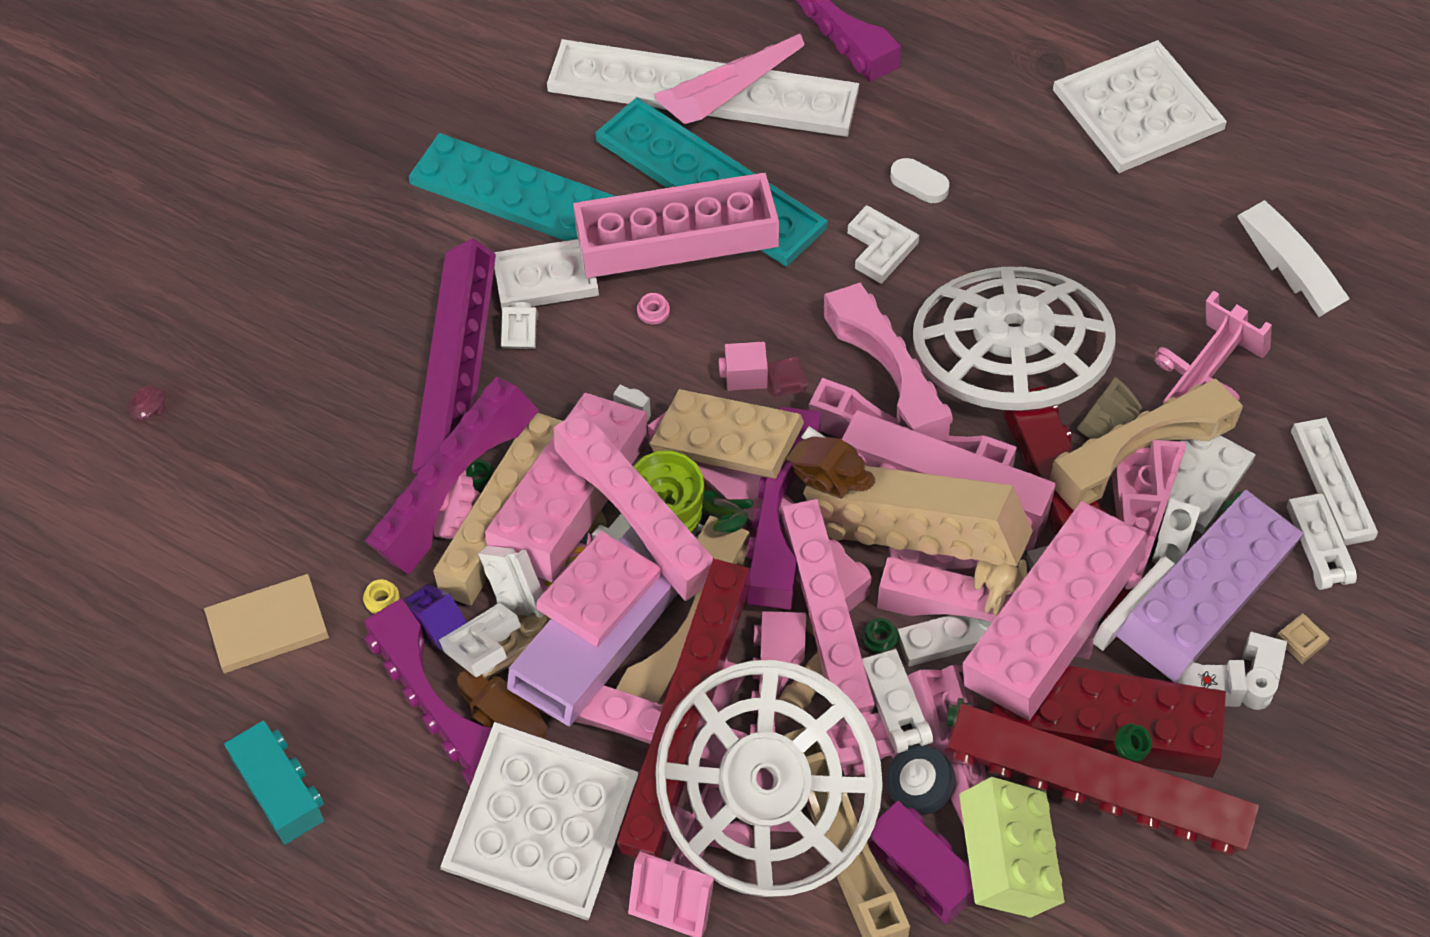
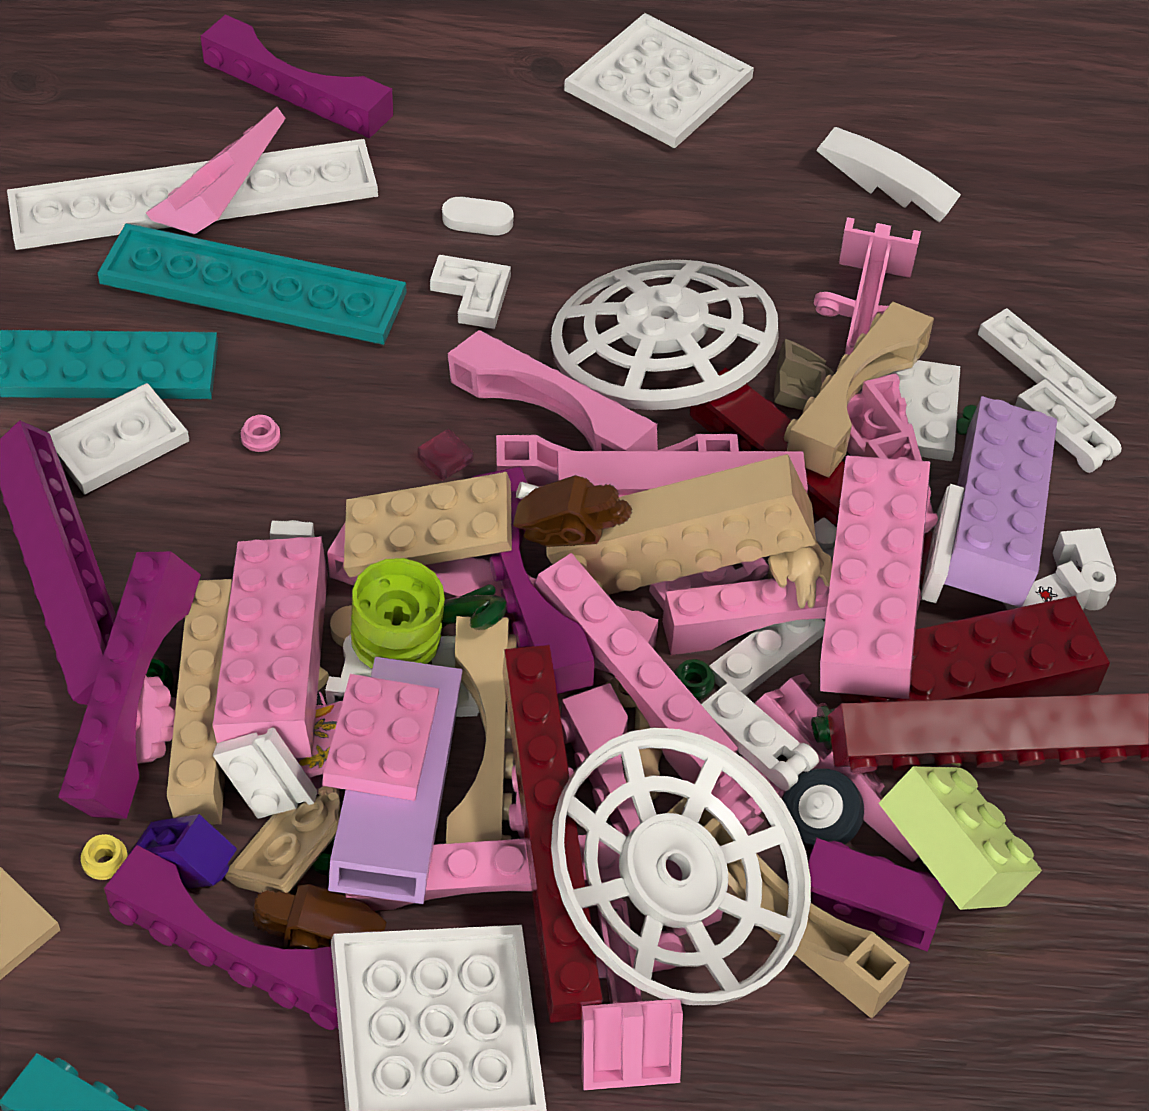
camera: 30 degrees left, 5 degrees down
(476, 643) = (258, 854): white plate -> none
(519, 326) = (116, 502): white bracket -> none
(669, 541) = (442, 658): bright pink arch -> none
(676, 225) = (247, 334): bright pink brick -> none
(744, 366) = (397, 457): bright pink brick -> none
(1133, 742) = (1023, 677): dark green plate -> none
(1176, 530) = (937, 448): white leg -> none
(1303, 638) = (1108, 519): tan tile -> none

